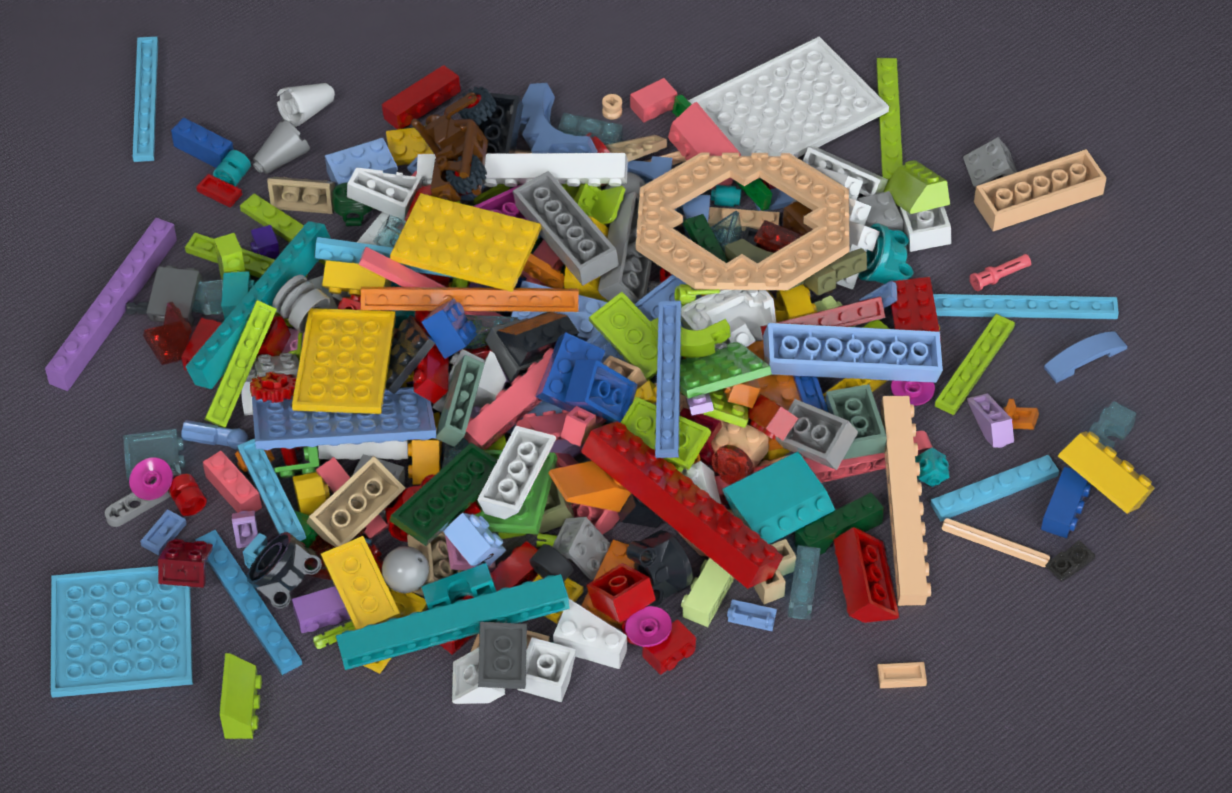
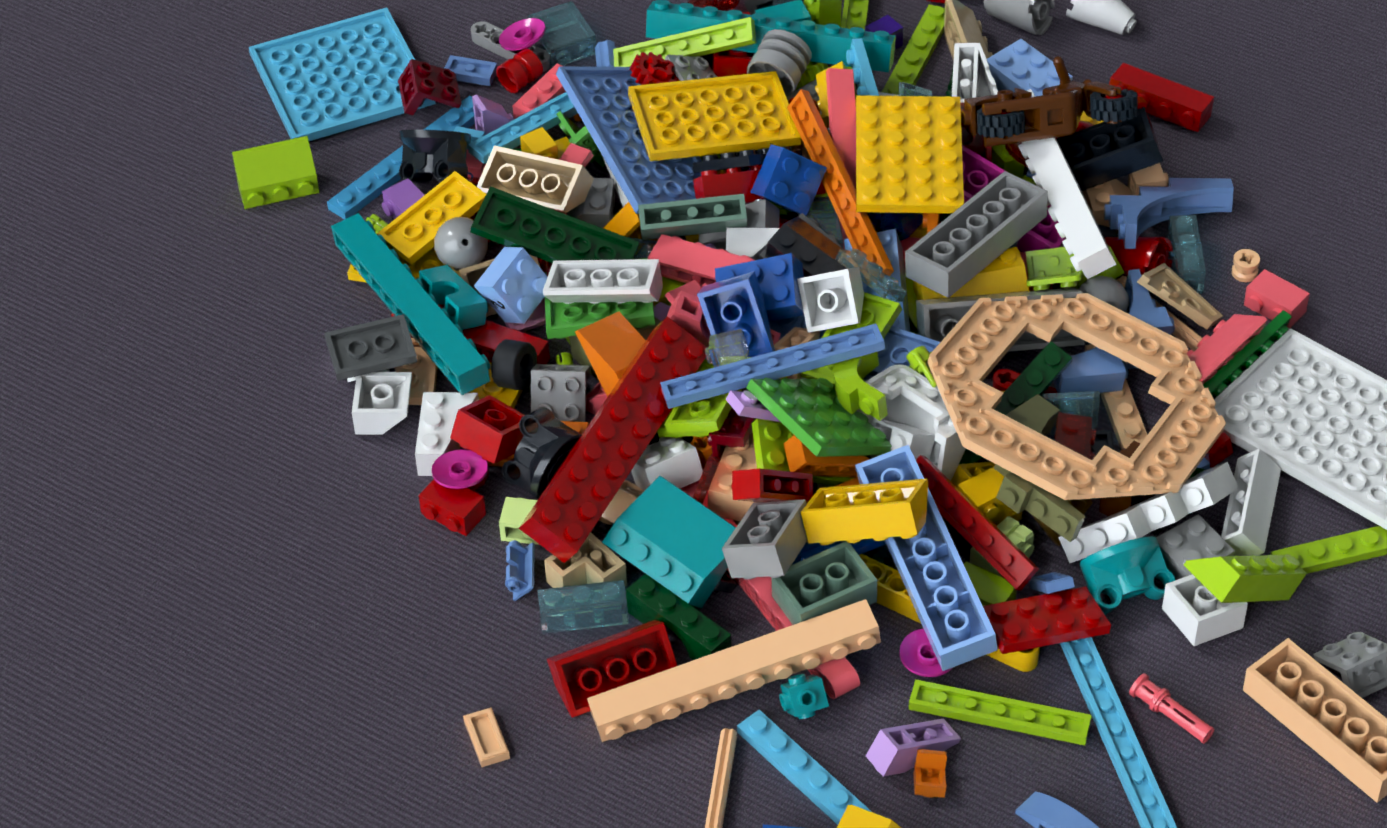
camera: 75 degrees right, 5 degrees down
(581, 301) = (872, 274): none -> clear light blue plate
(600, 327) = (832, 299): none -> white slope
(630, 406) = (727, 348): none -> clear brick
(726, 195) = (1152, 406): teal brick -> none
(818, 363) = (866, 512): none -> yellow slope

